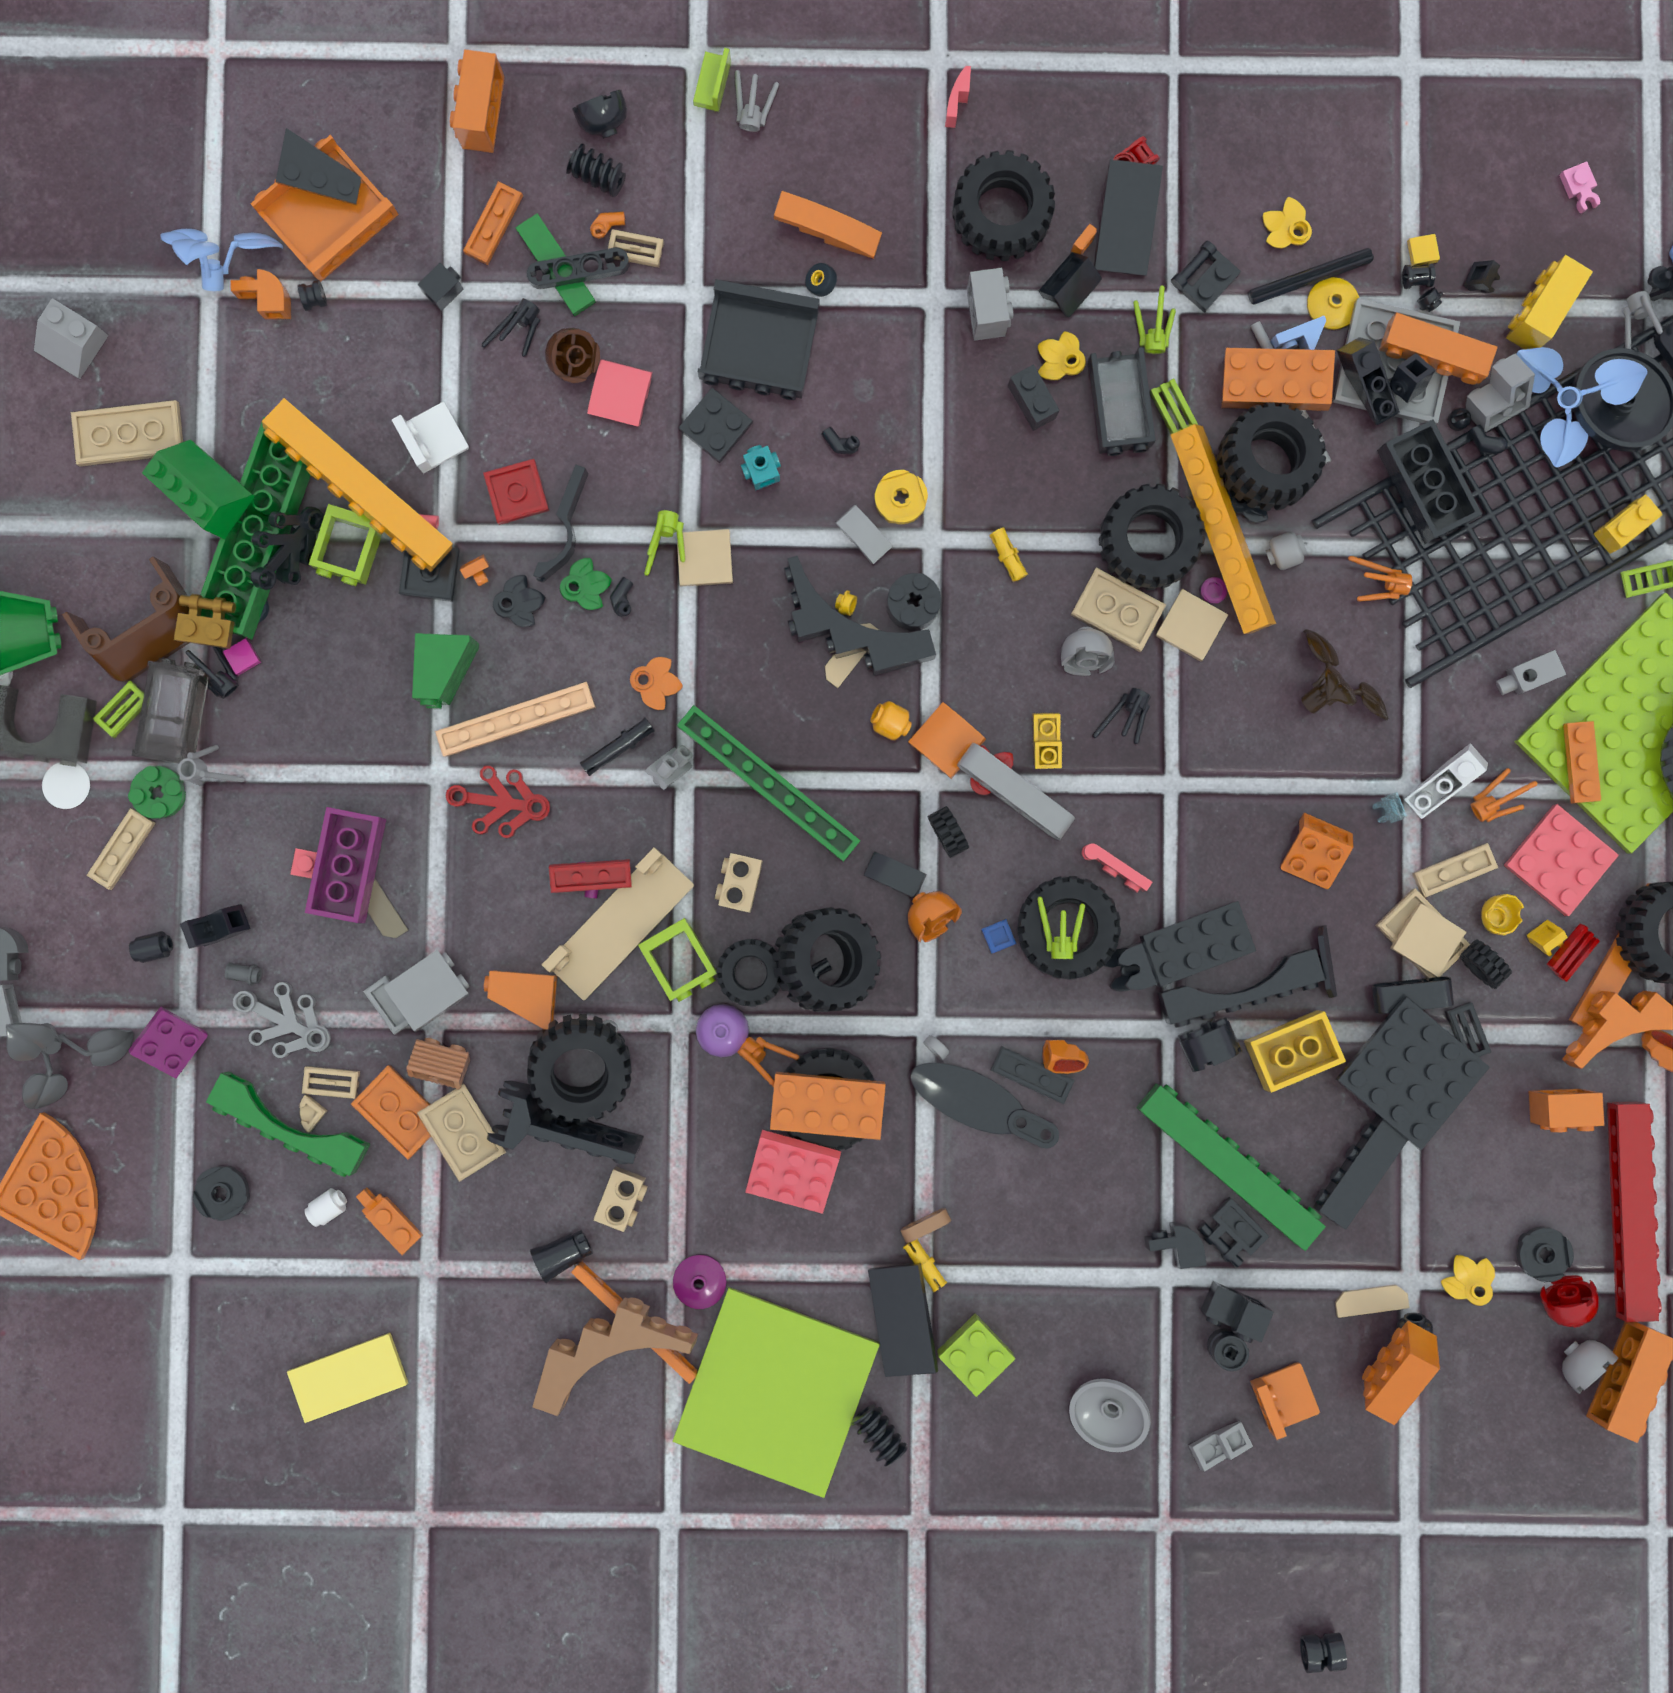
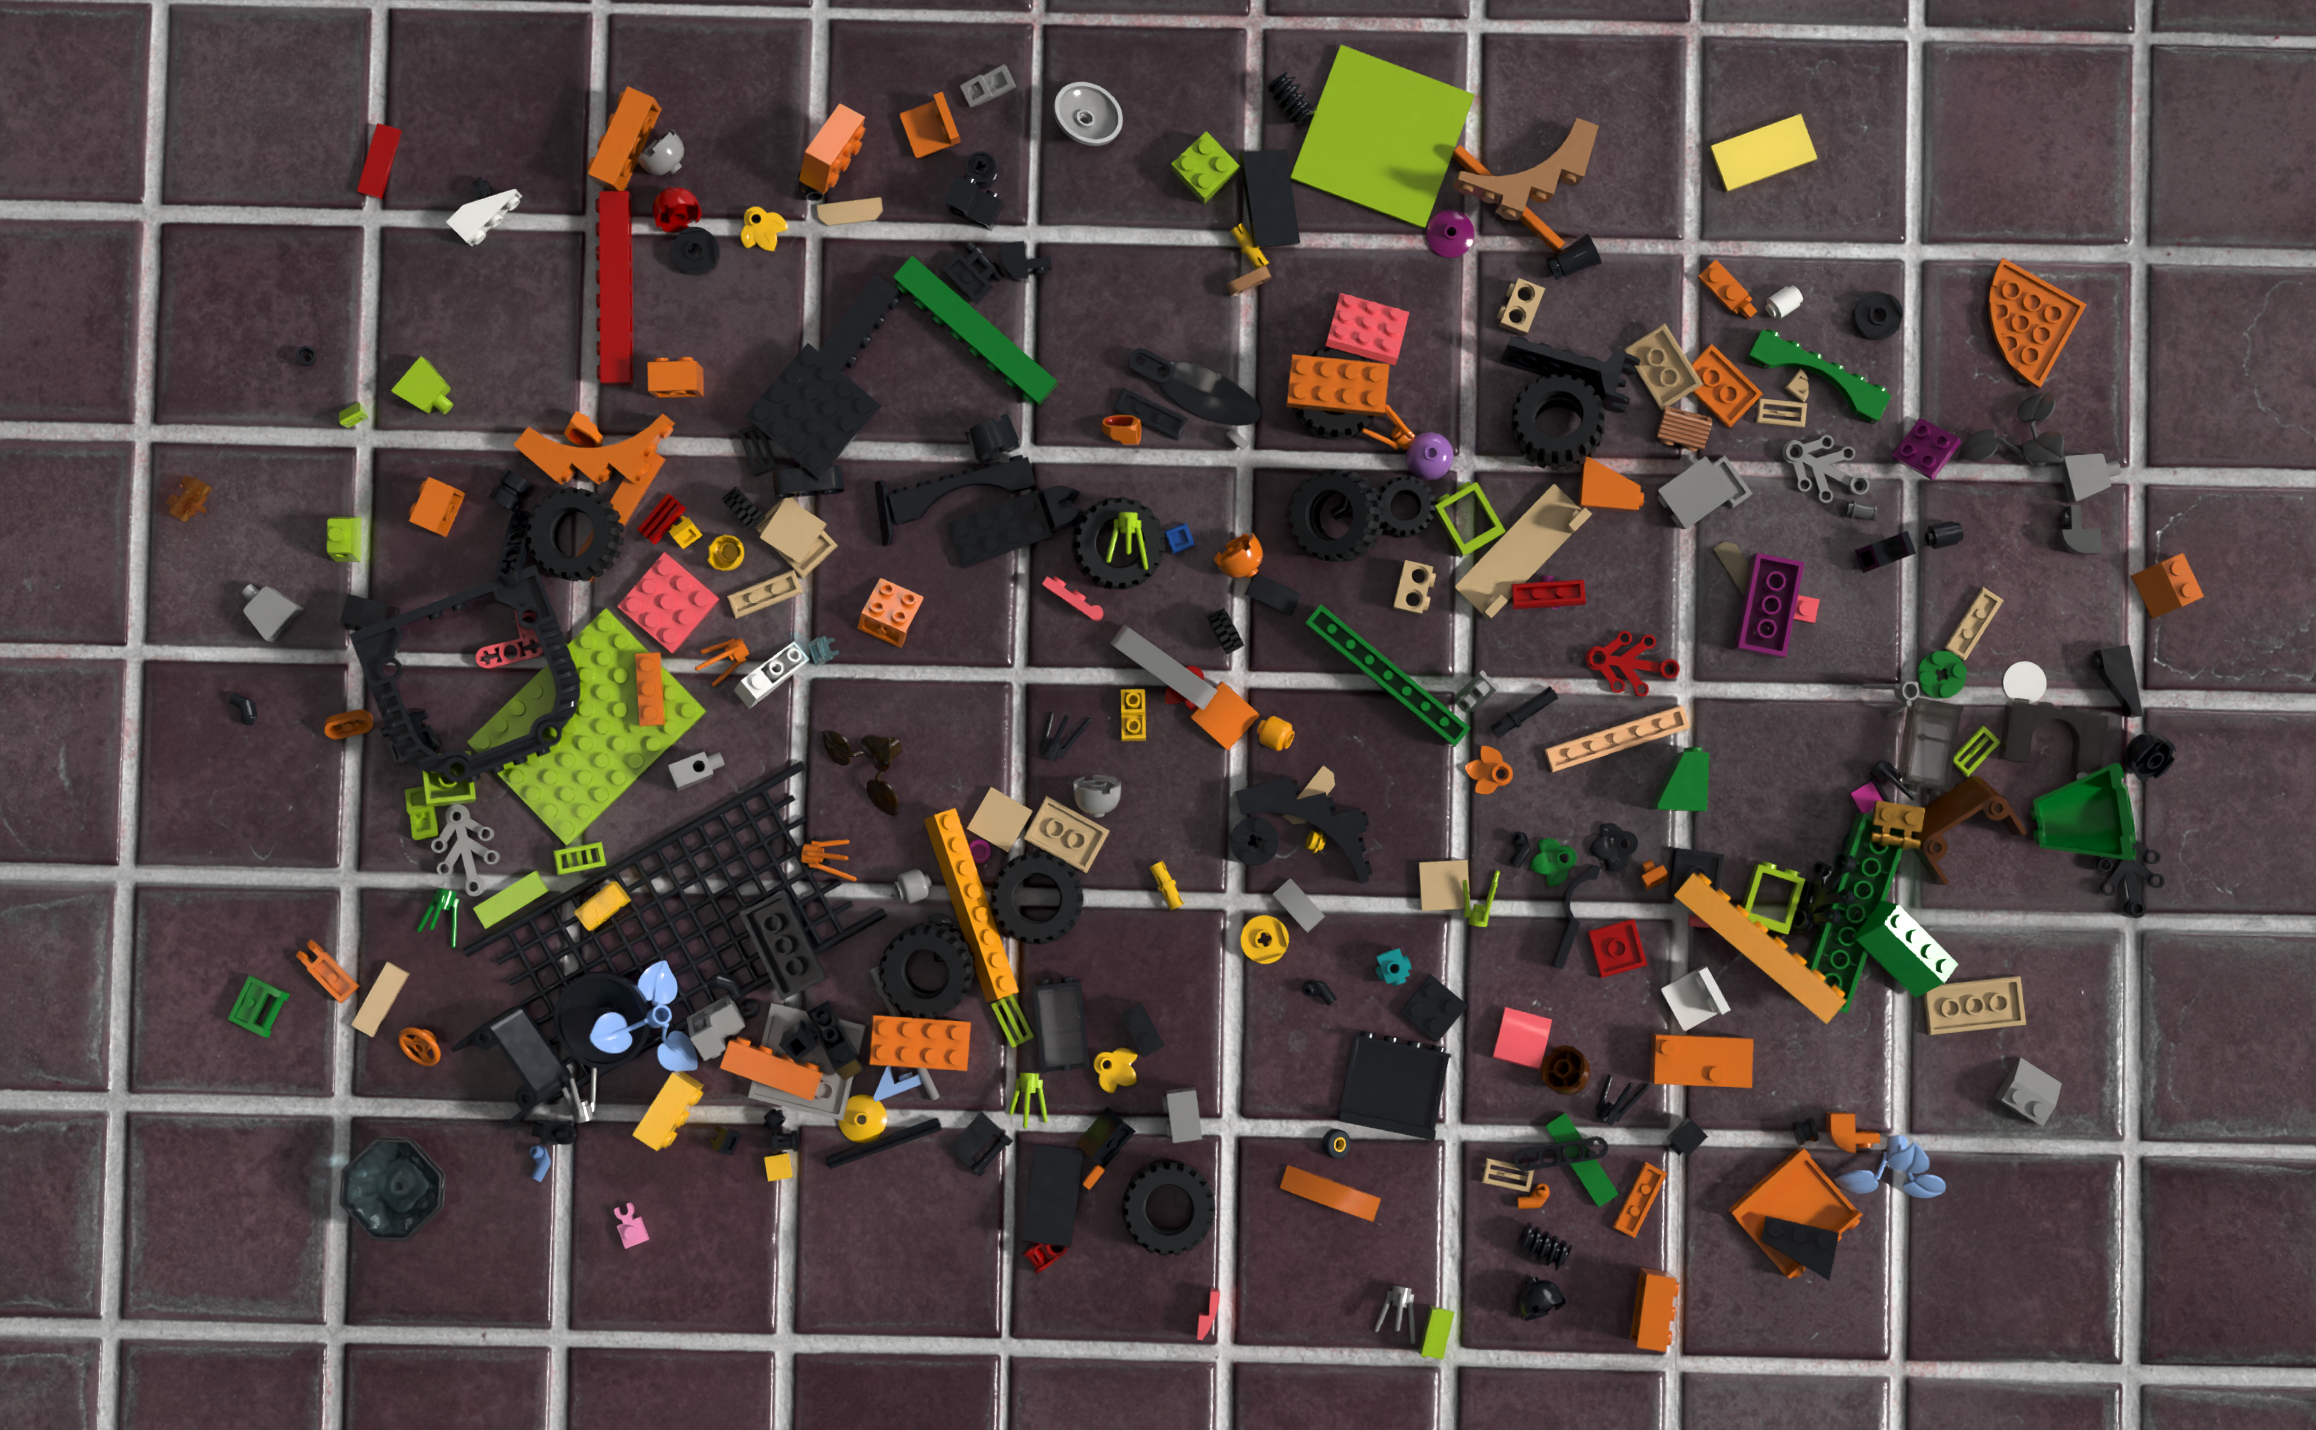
camera: 170 degrees left, 0 degrees up
(424, 369) = (1701, 1060): none -> orange brick
(1284, 223) = (908, 1192): yellow plate -> none
(1294, 1051) = (916, 432): yellow brick -> none

